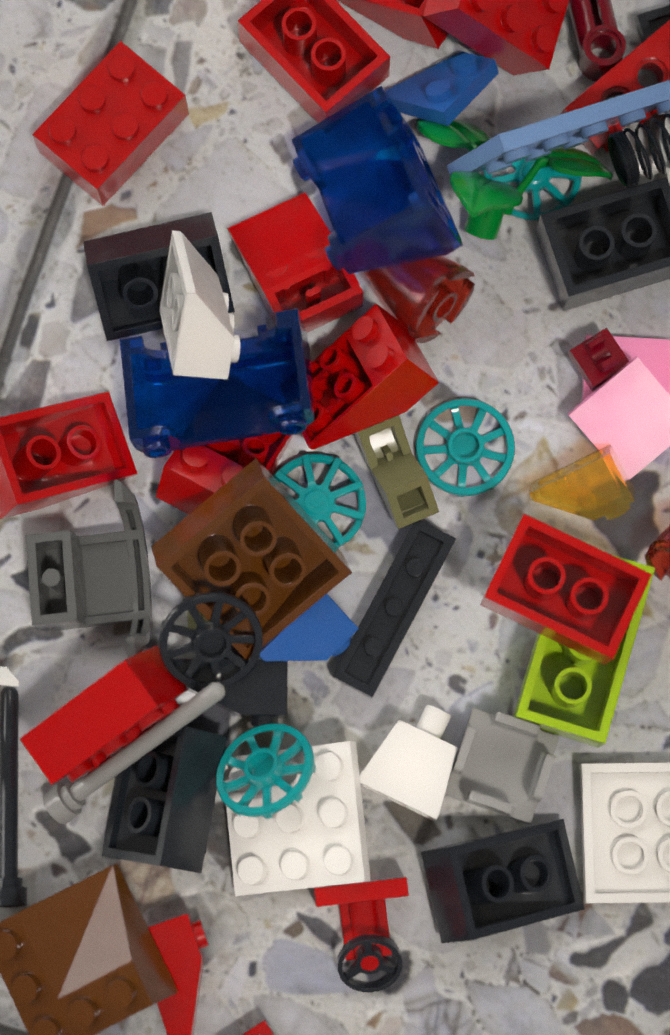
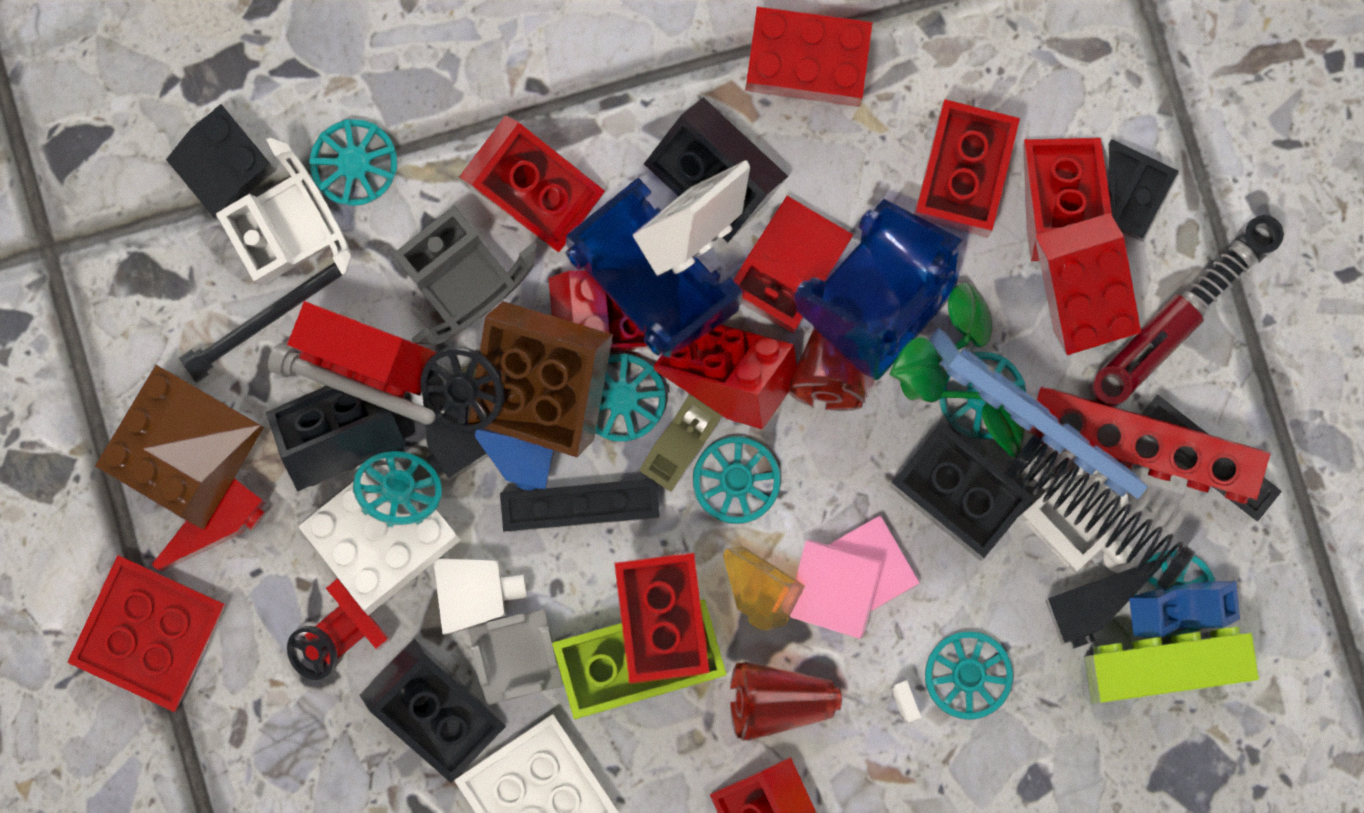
camera: 55 degrees right, 5 degrees up
(445, 88) = (1000, 285): blue wing -> none
(598, 358) = (865, 535): dark red tile -> none

